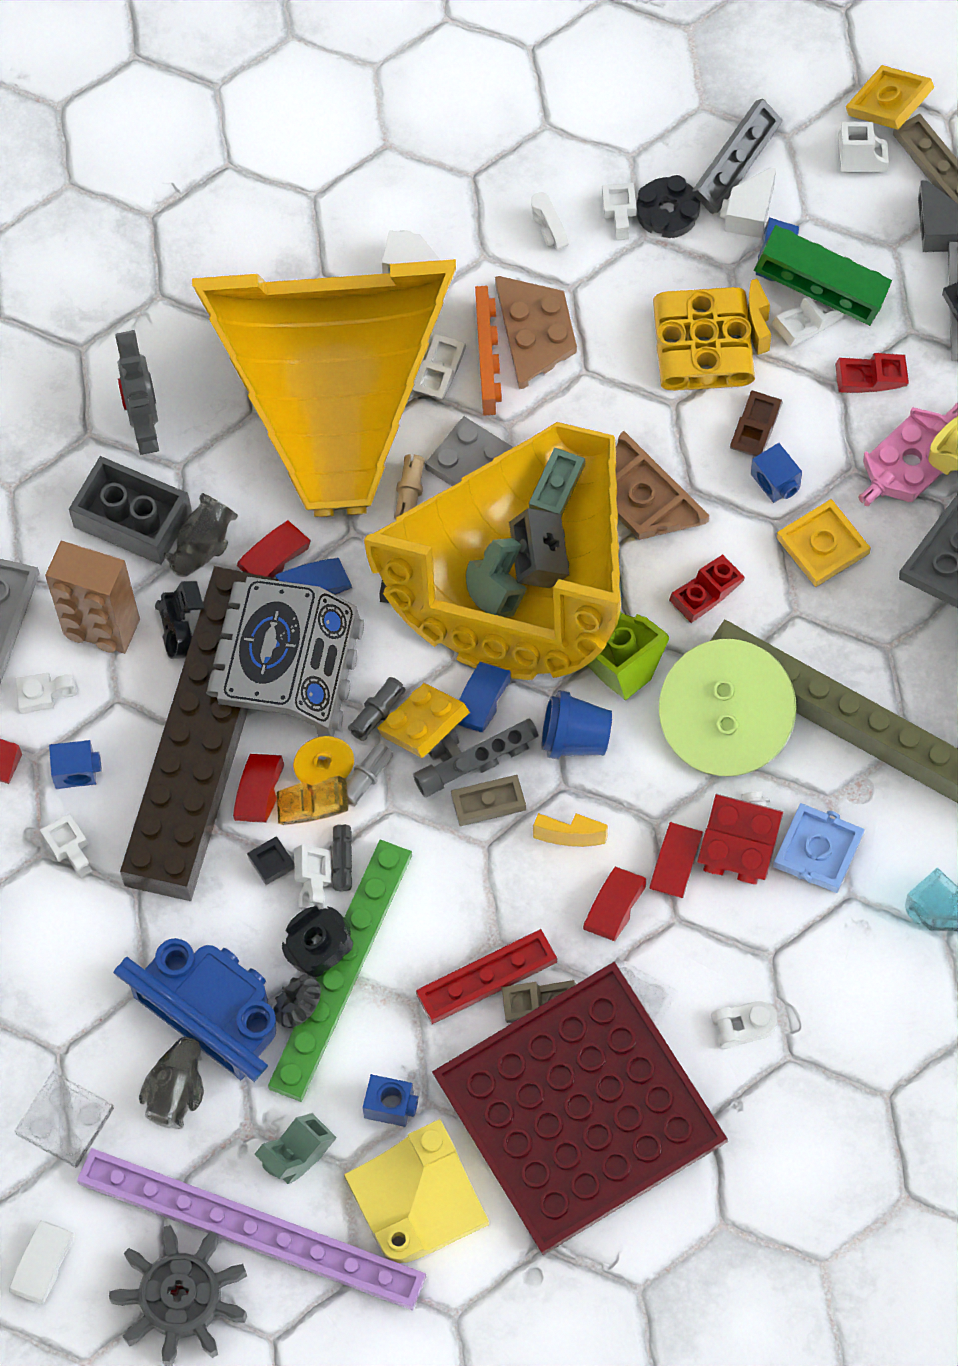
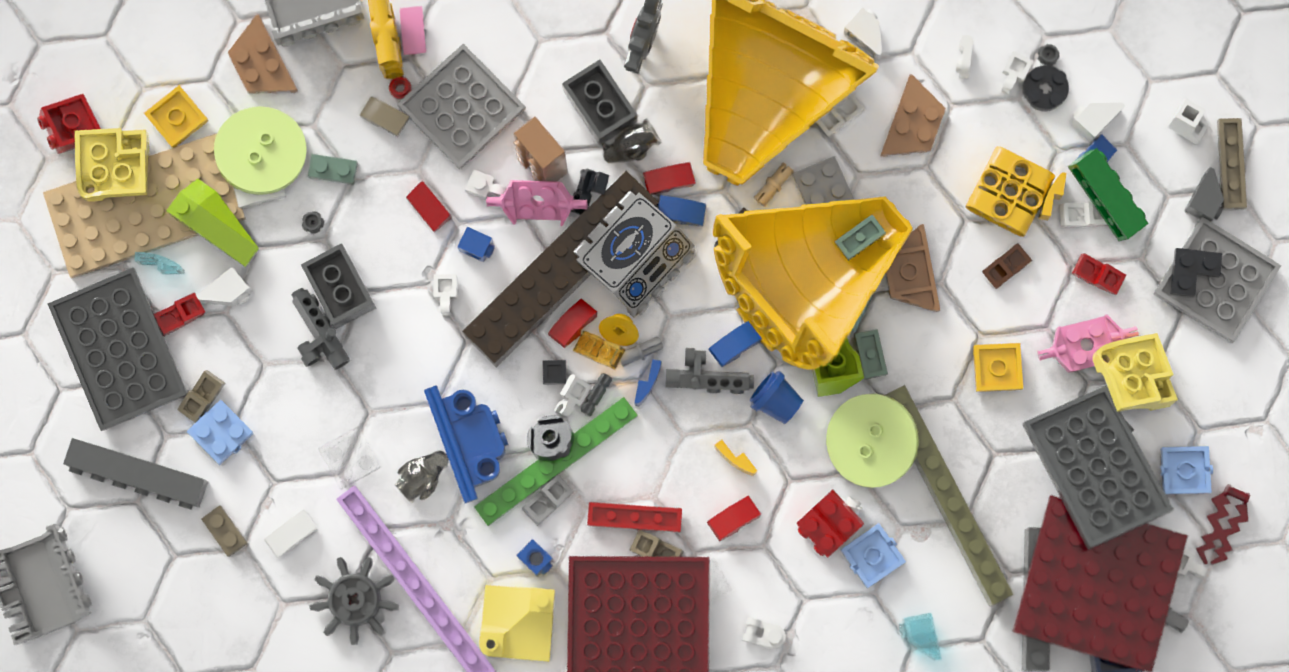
camera: 30 degrees right, 15 degrees up
(105, 686) = (519, 202): none -> bright pink plate
(296, 1149) = (466, 555): sand green brick -> none
(308, 994) = (524, 471): dark grey gear -> none
(360, 1022) = (547, 500): none -> light grey slope
(376, 708) = (670, 314): dark grey pin -> none
(399, 809) = (644, 388): none -> blue slope
(423, 720) = (691, 339): yellow plate -> none
(486, 339) = (870, 129): orange plate -> none
(488, 800) = (700, 410): dark tan plate -> none
(490, 580) = (782, 279): sand green brick -> none
(543, 548) = (823, 274): dark grey brick -> none
(646, 161) = (1052, 50): none -> dark grey plate
(660, 610) = (871, 354): none -> sand green plate
(676, 860) = (786, 512): red slope -> none
(708, 588) = (910, 354): red slope -> none
(737, 155) = (1109, 79): plate -> none
(776, 473) = (998, 306): blue brick -> none
(889, 97) = (1229, 96): yellow plate -> none

